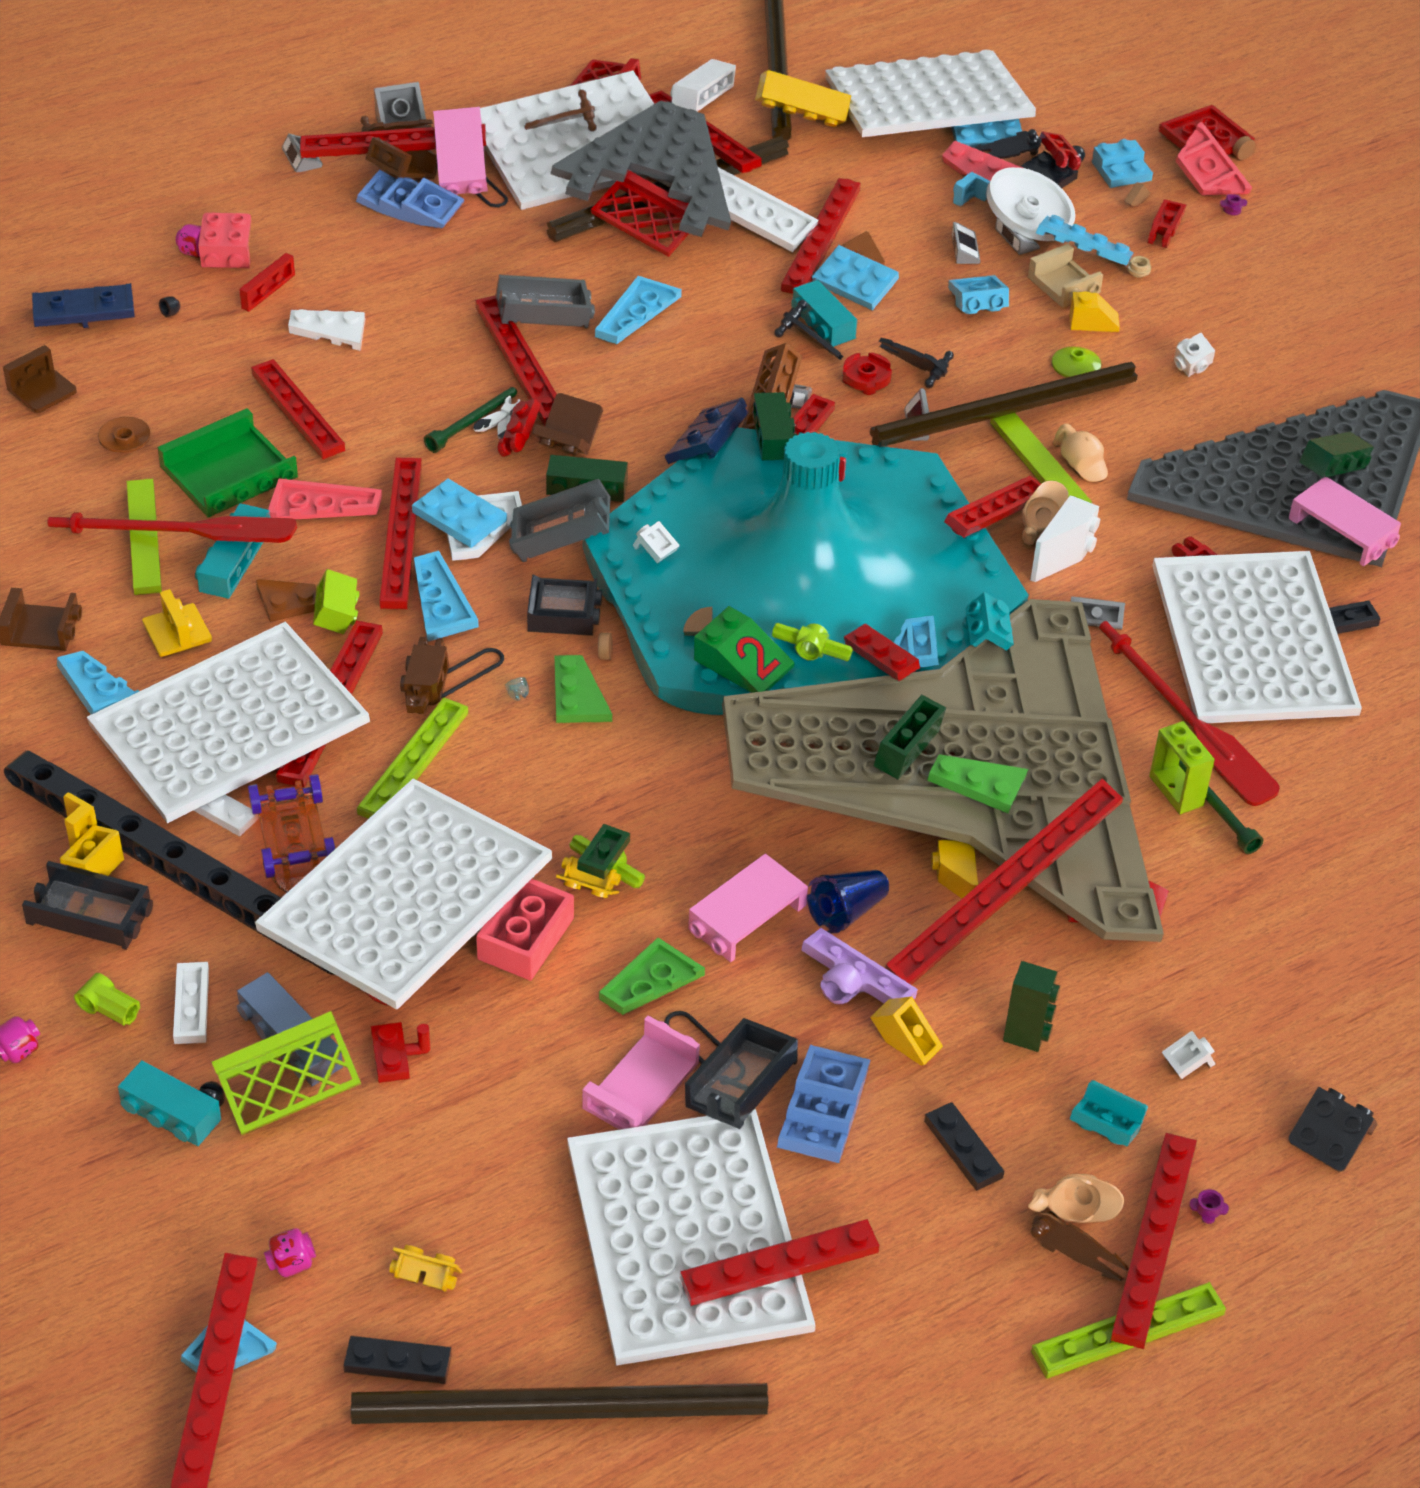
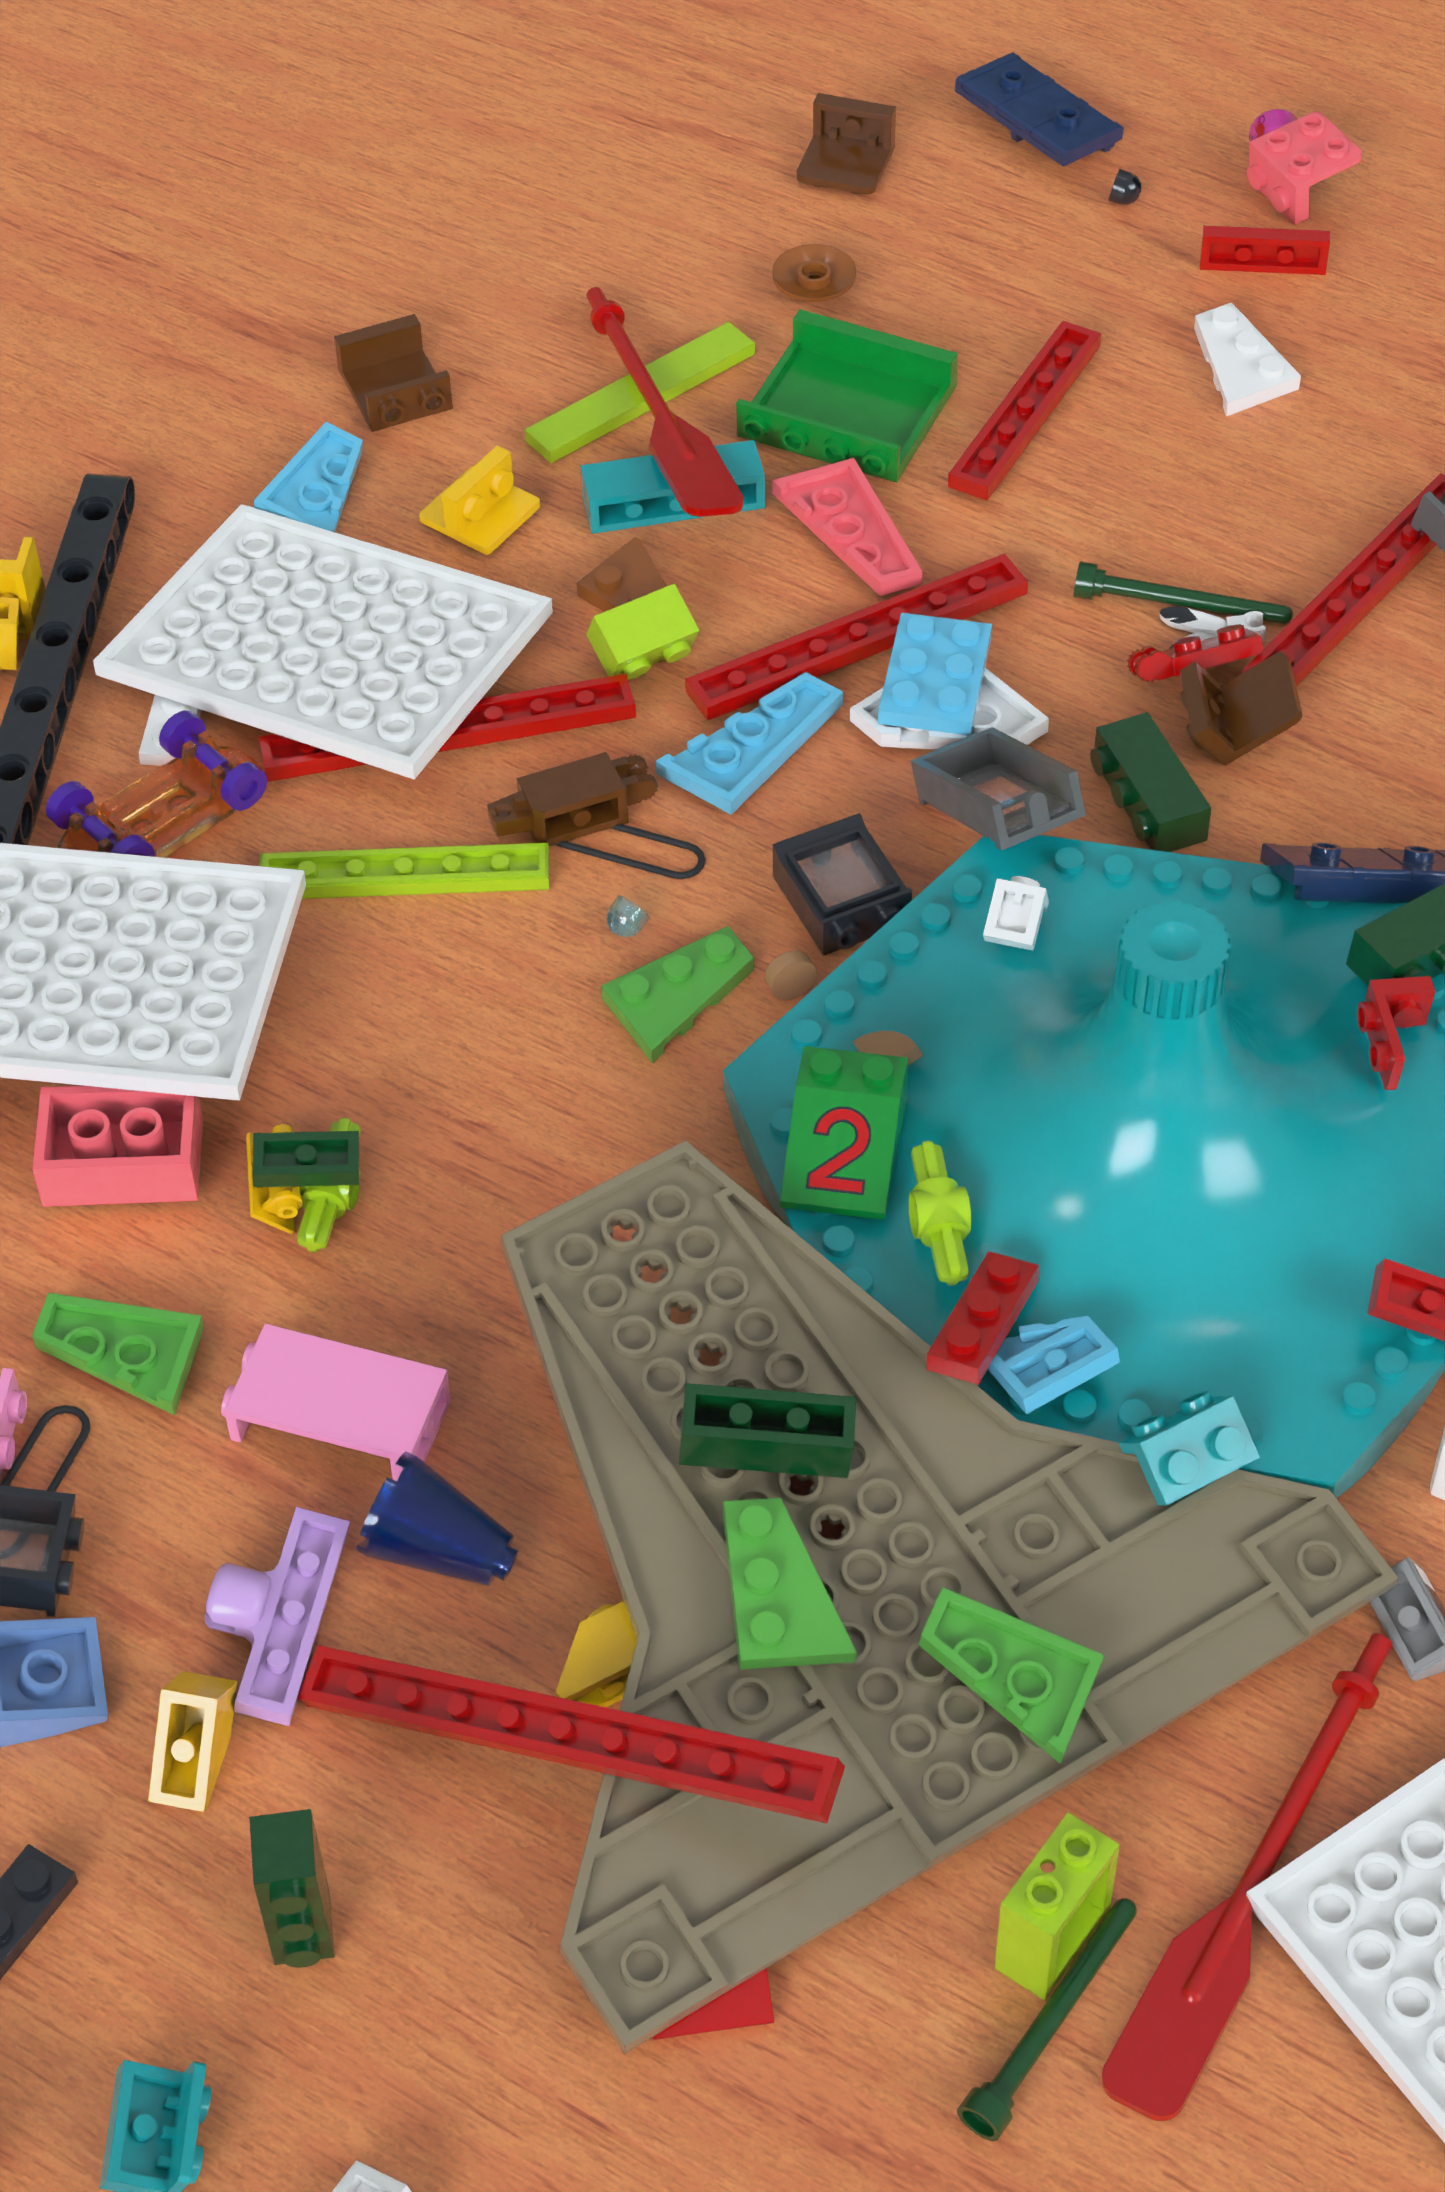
camera: 65 degrees right, 5 degrees up
(1063, 726) = (1014, 1666): none -> bright green wing

